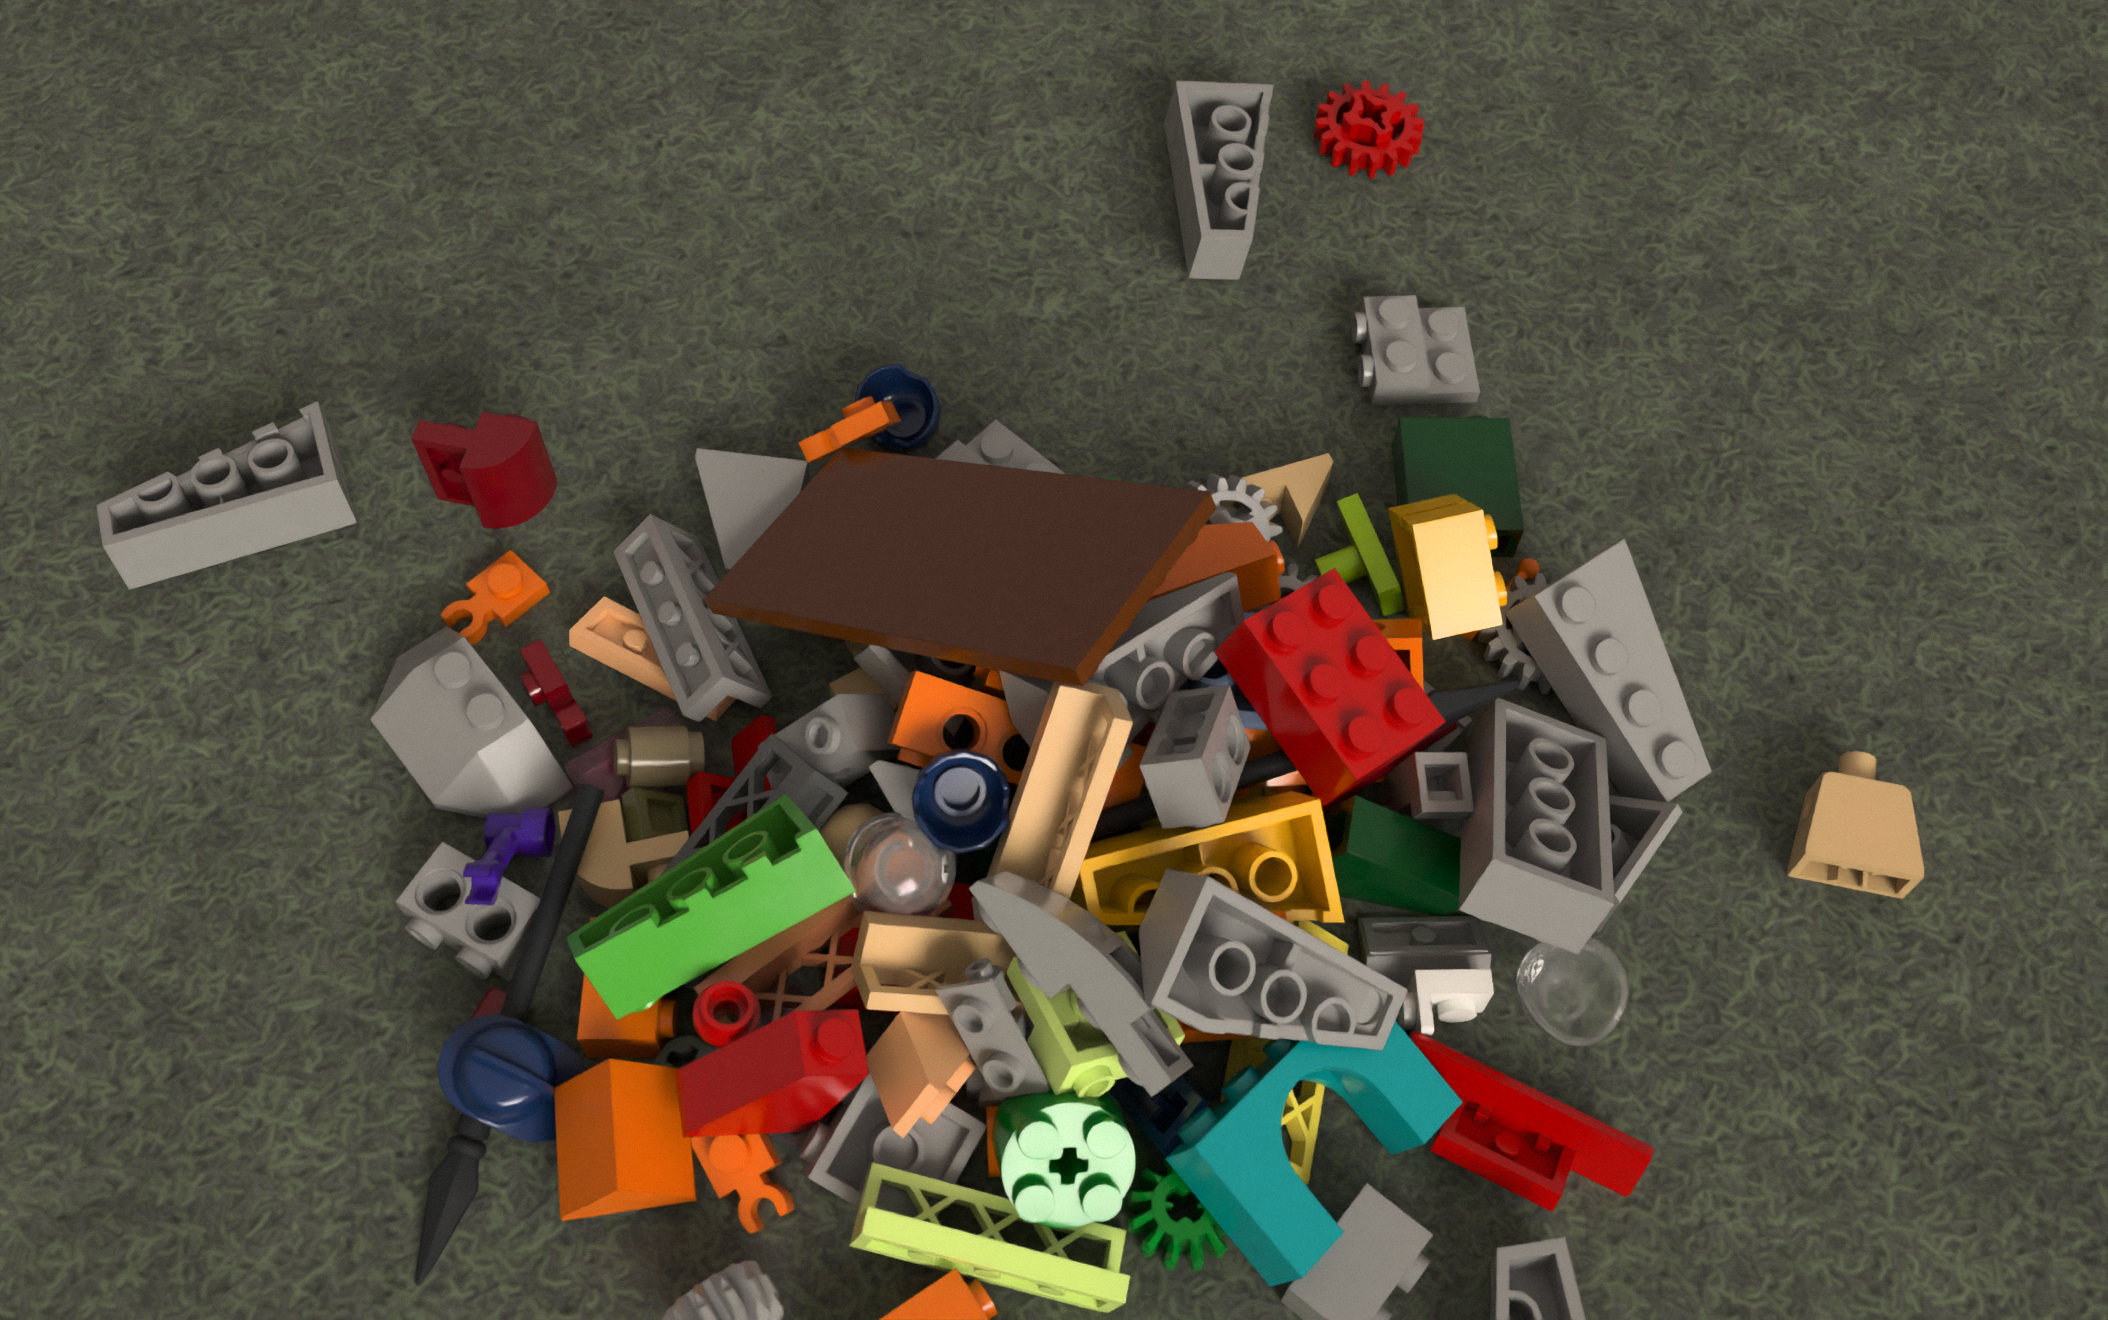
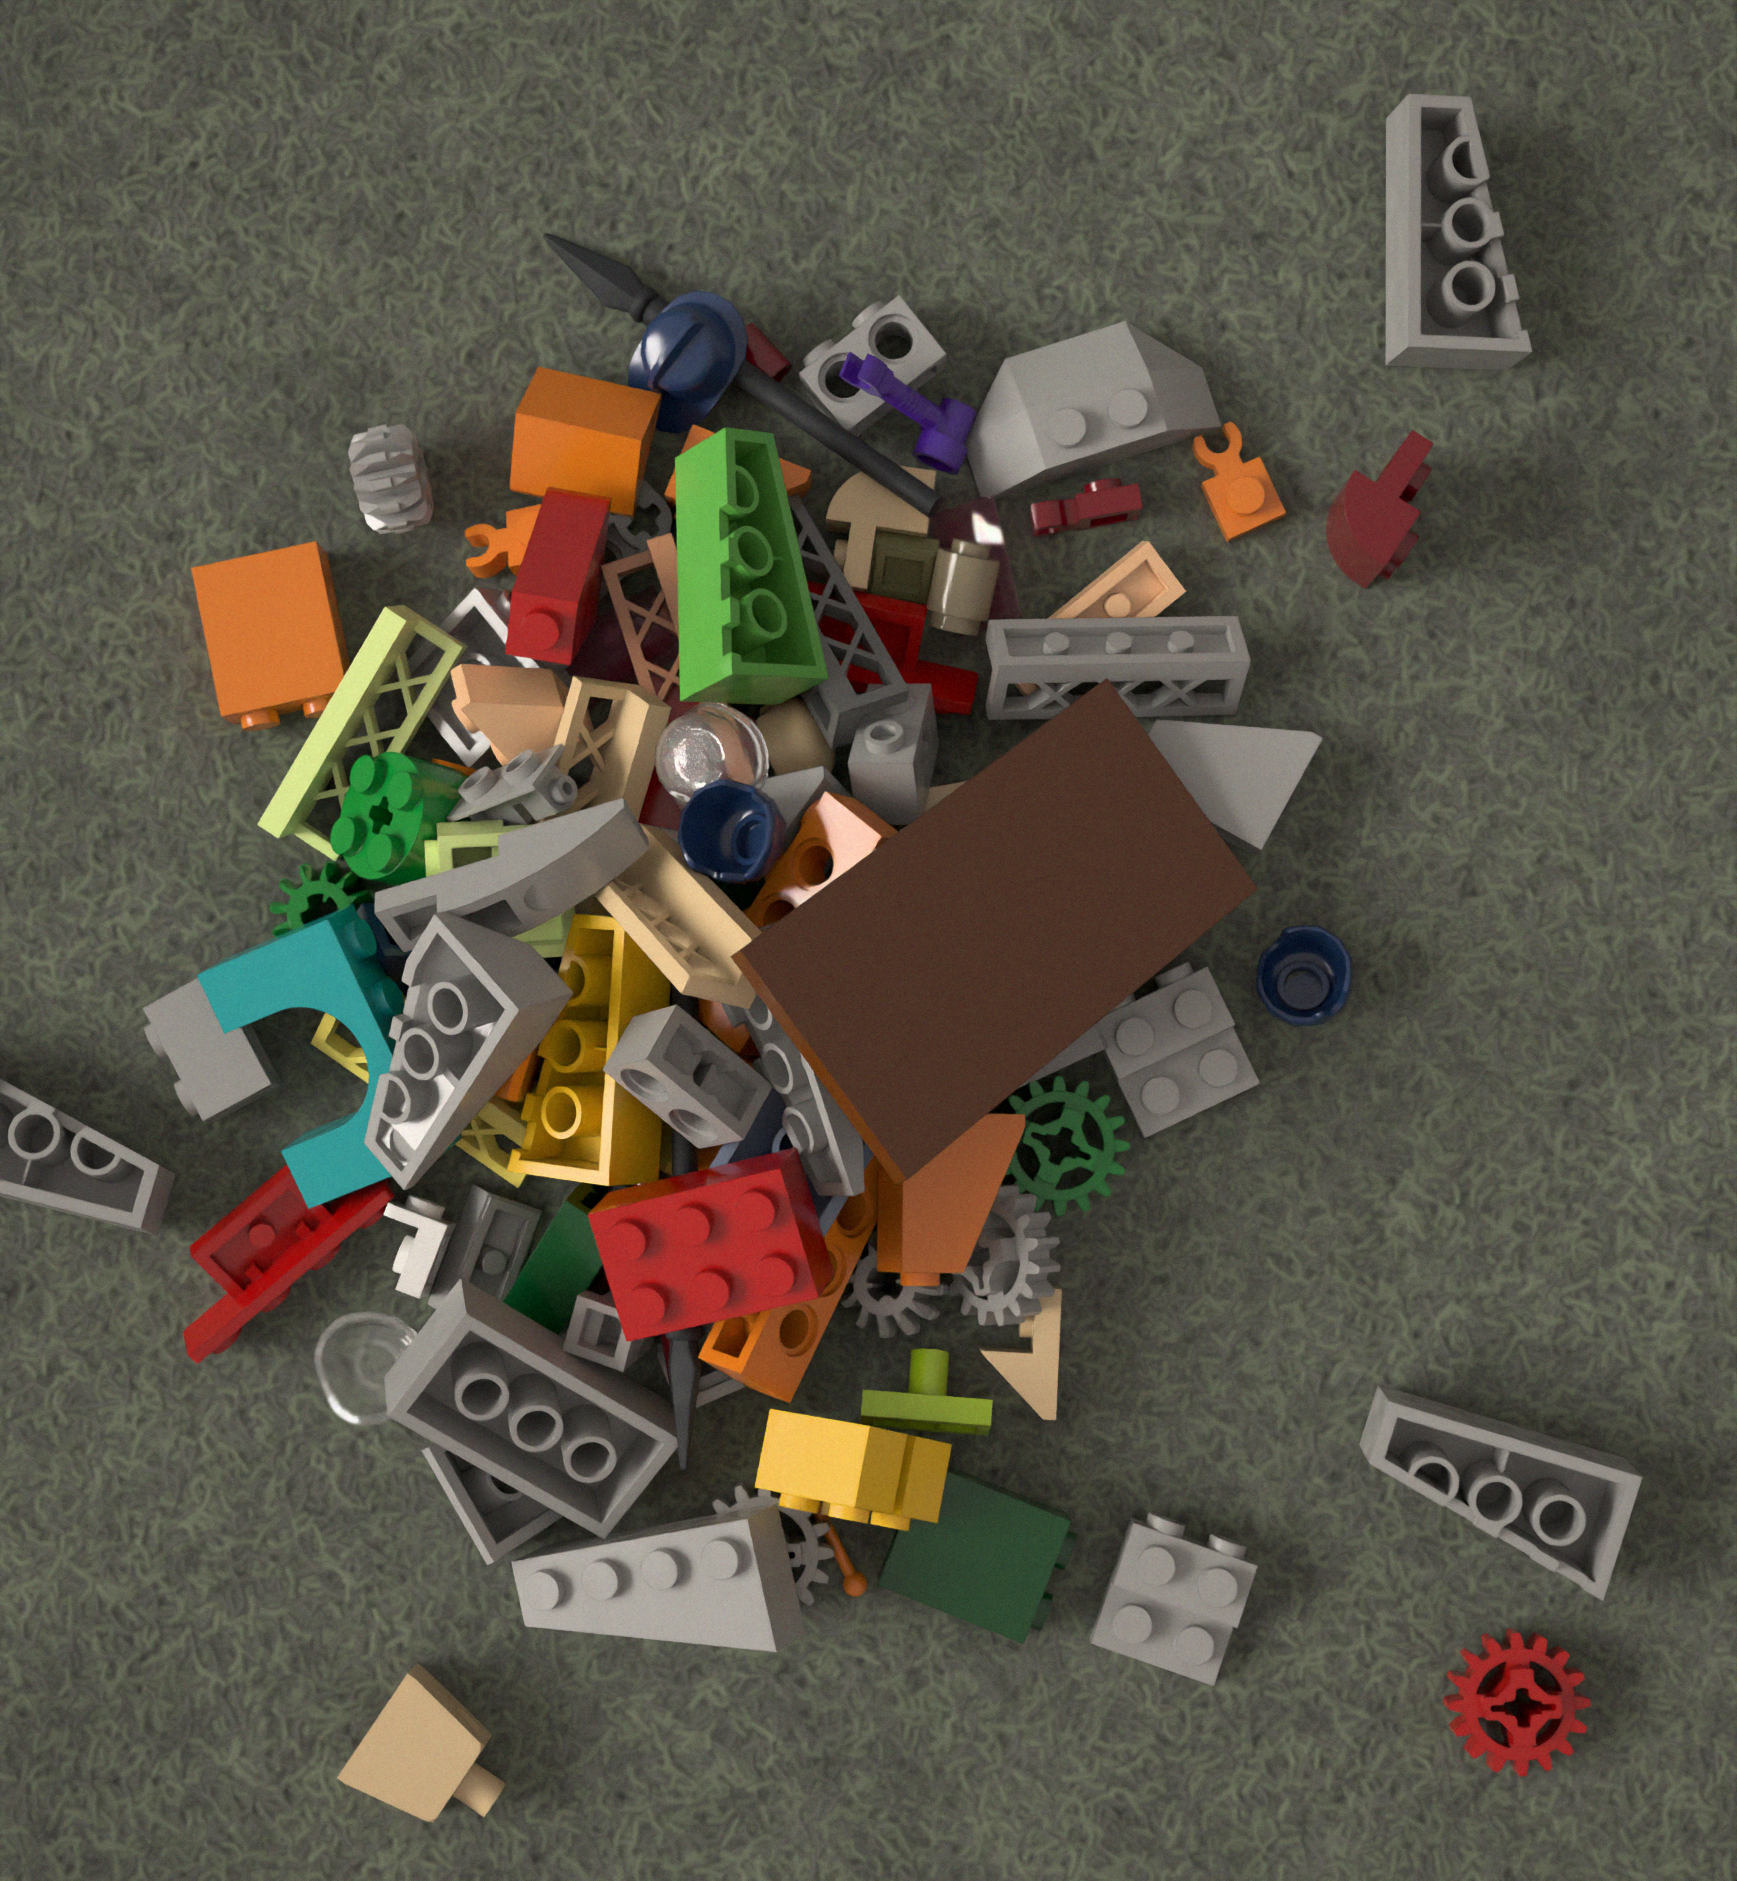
camera: 120 degrees right, 25 degrees up
(722, 996) = (608, 547): red plate -> none
(860, 422) = (1276, 918): orange plate -> none

